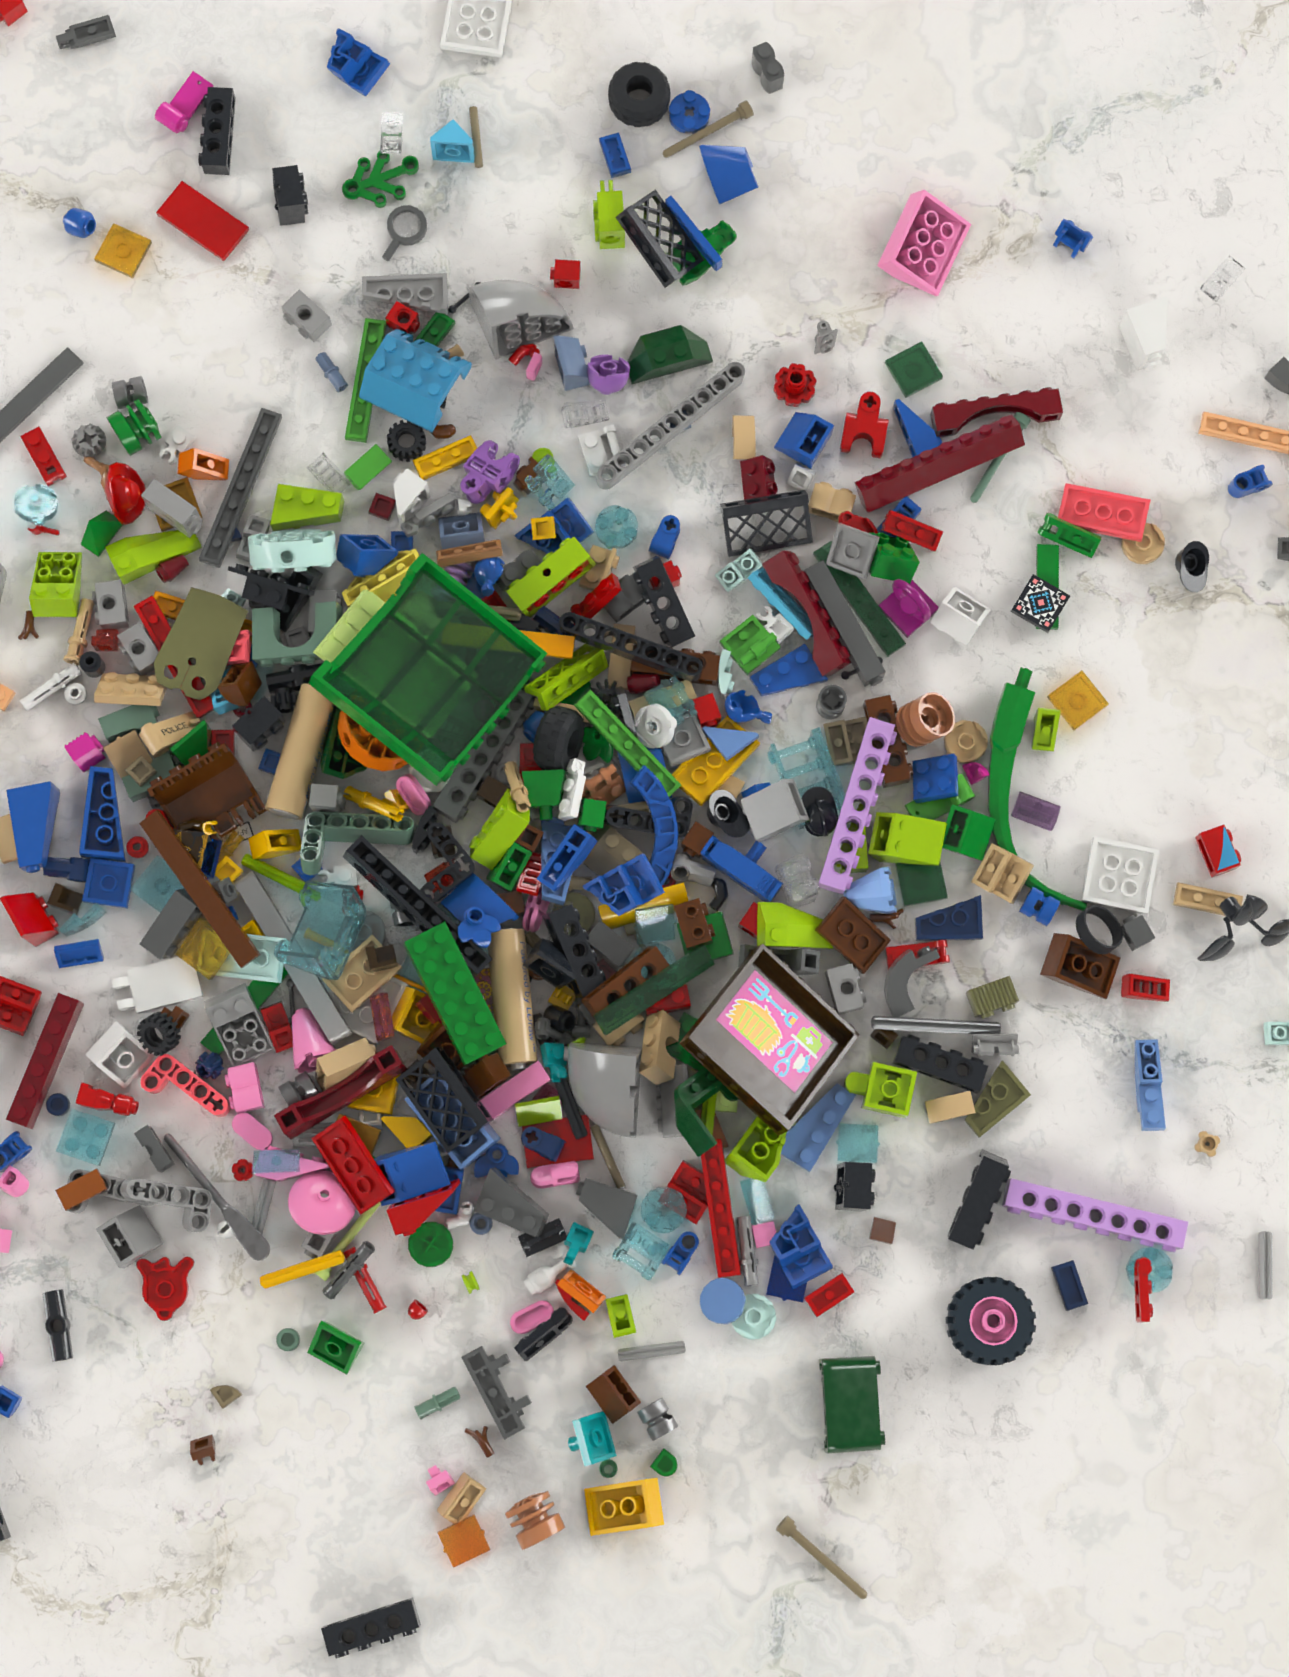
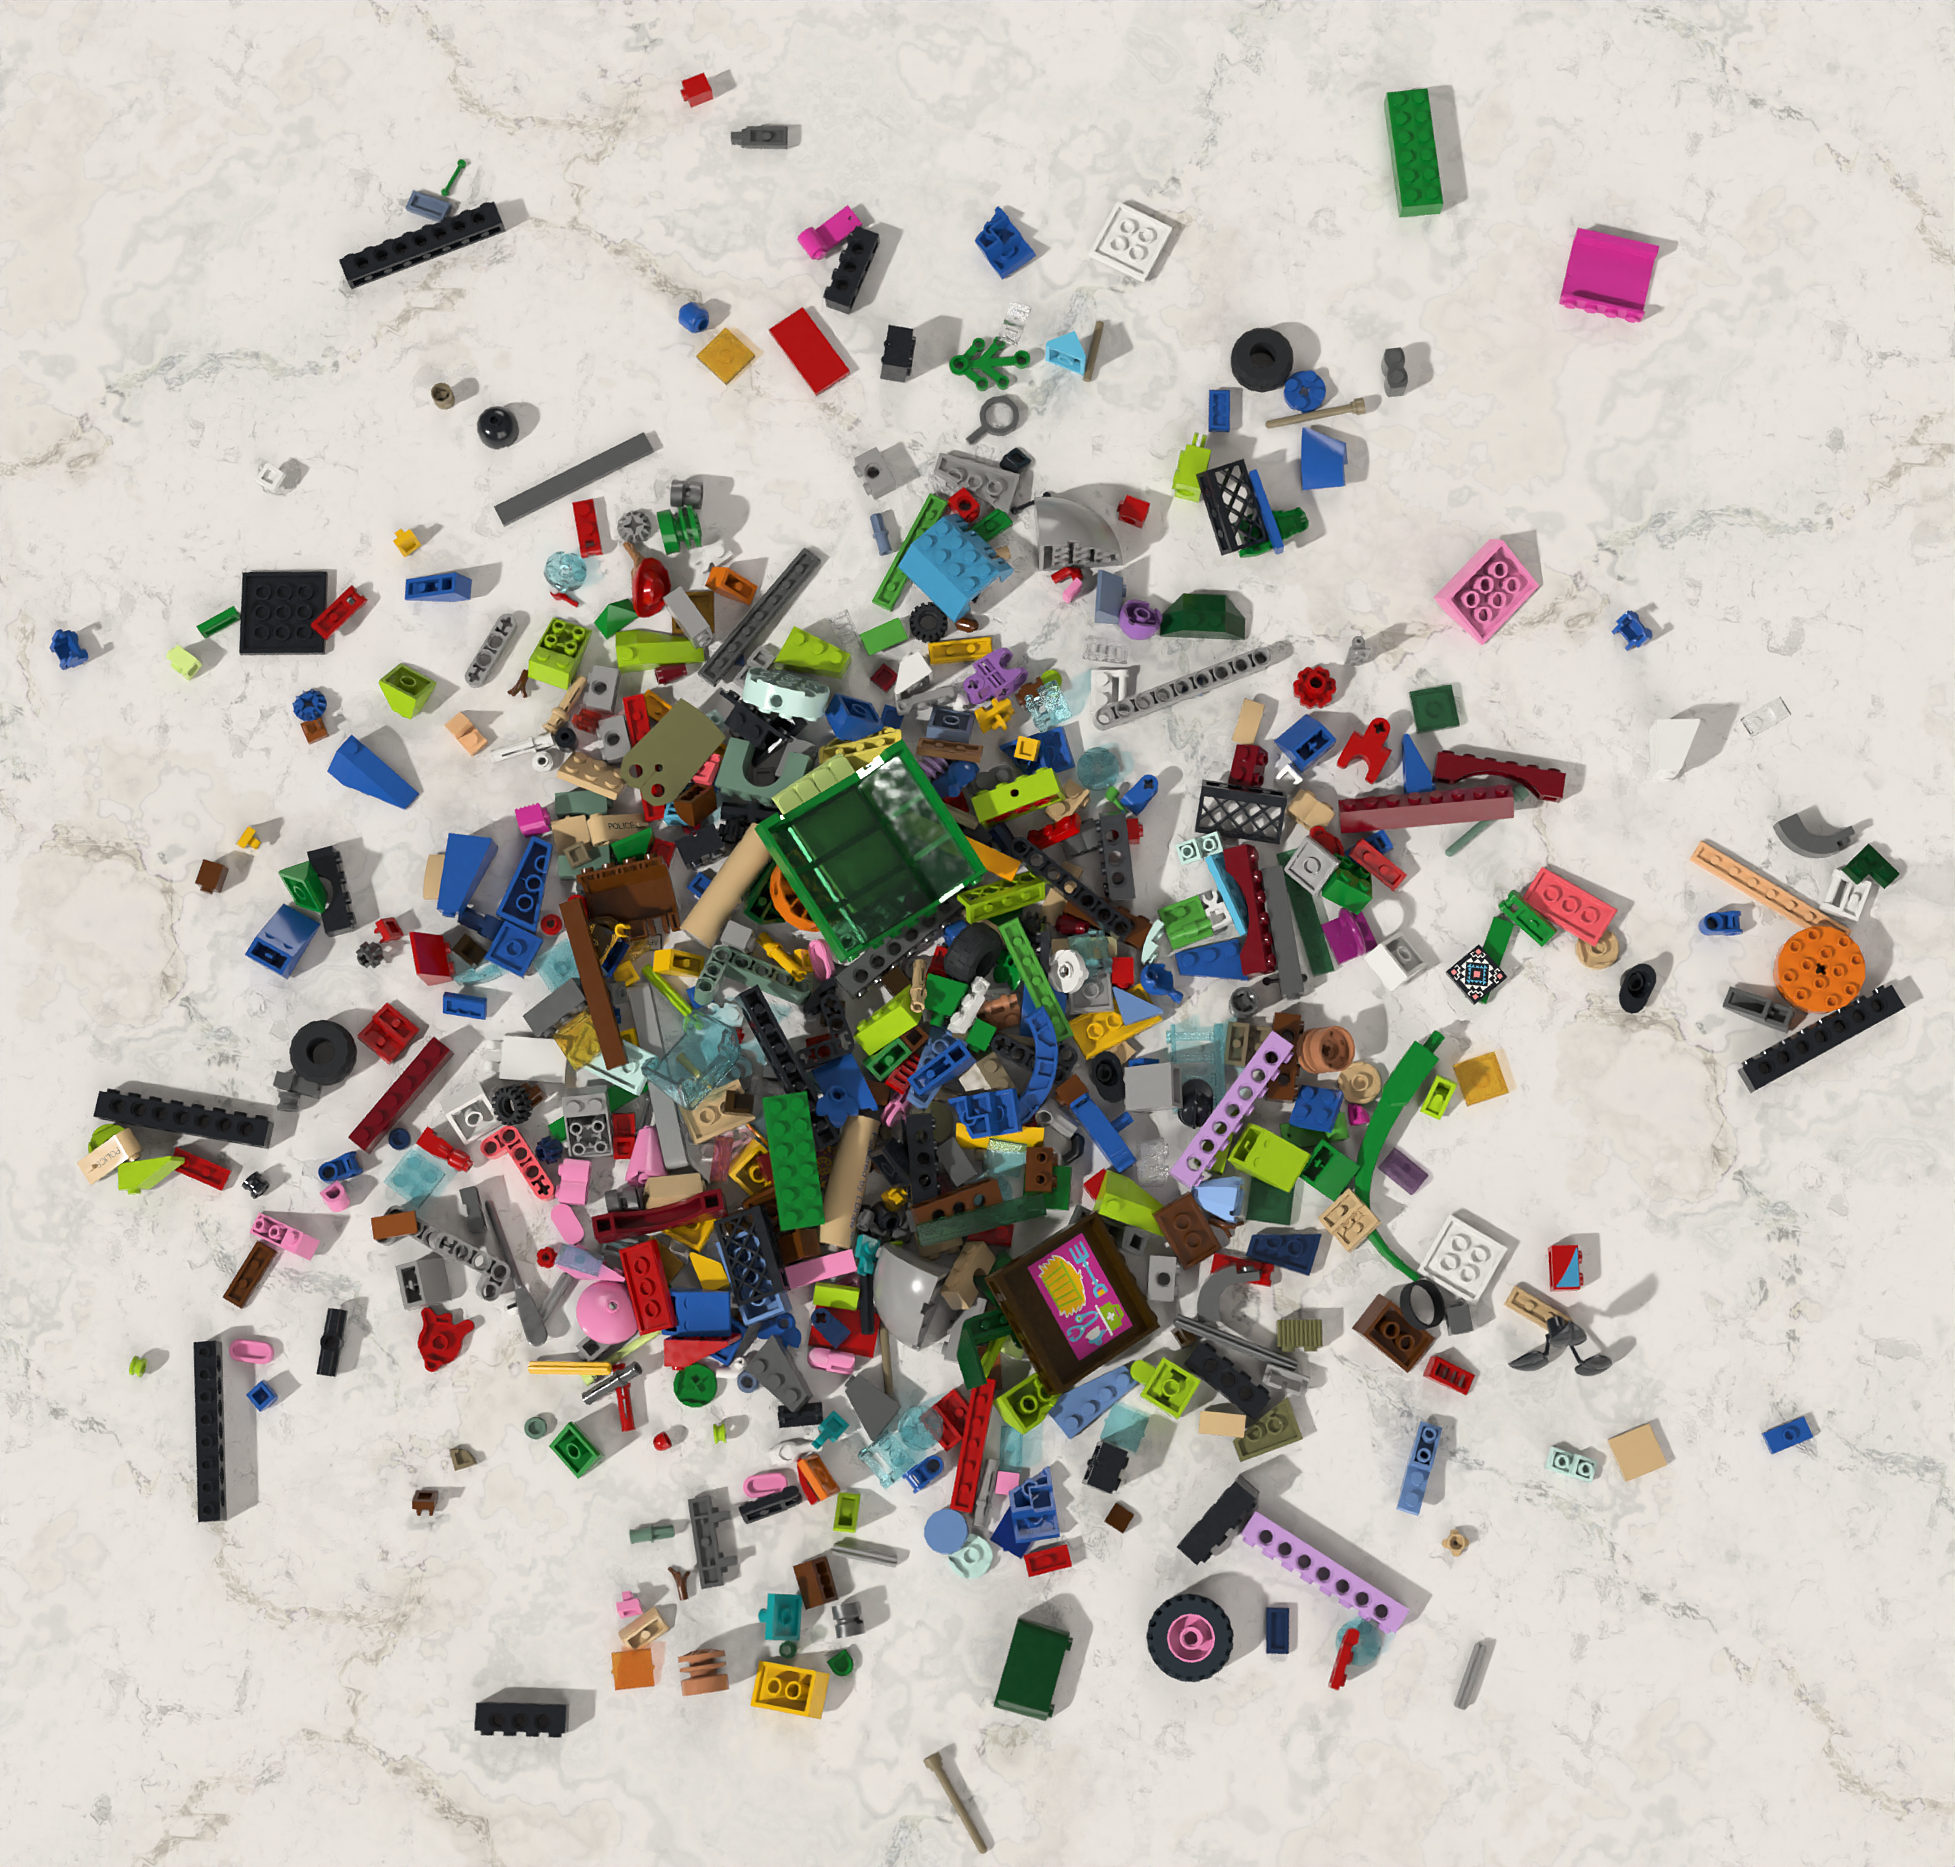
camera: 25 degrees right, 0 degrees up
(436, 263) = (1014, 461): none -> black slope
(637, 548) = (1111, 795): none -> bright green hand
(1046, 910) = (1377, 1271): blue wheel -> none

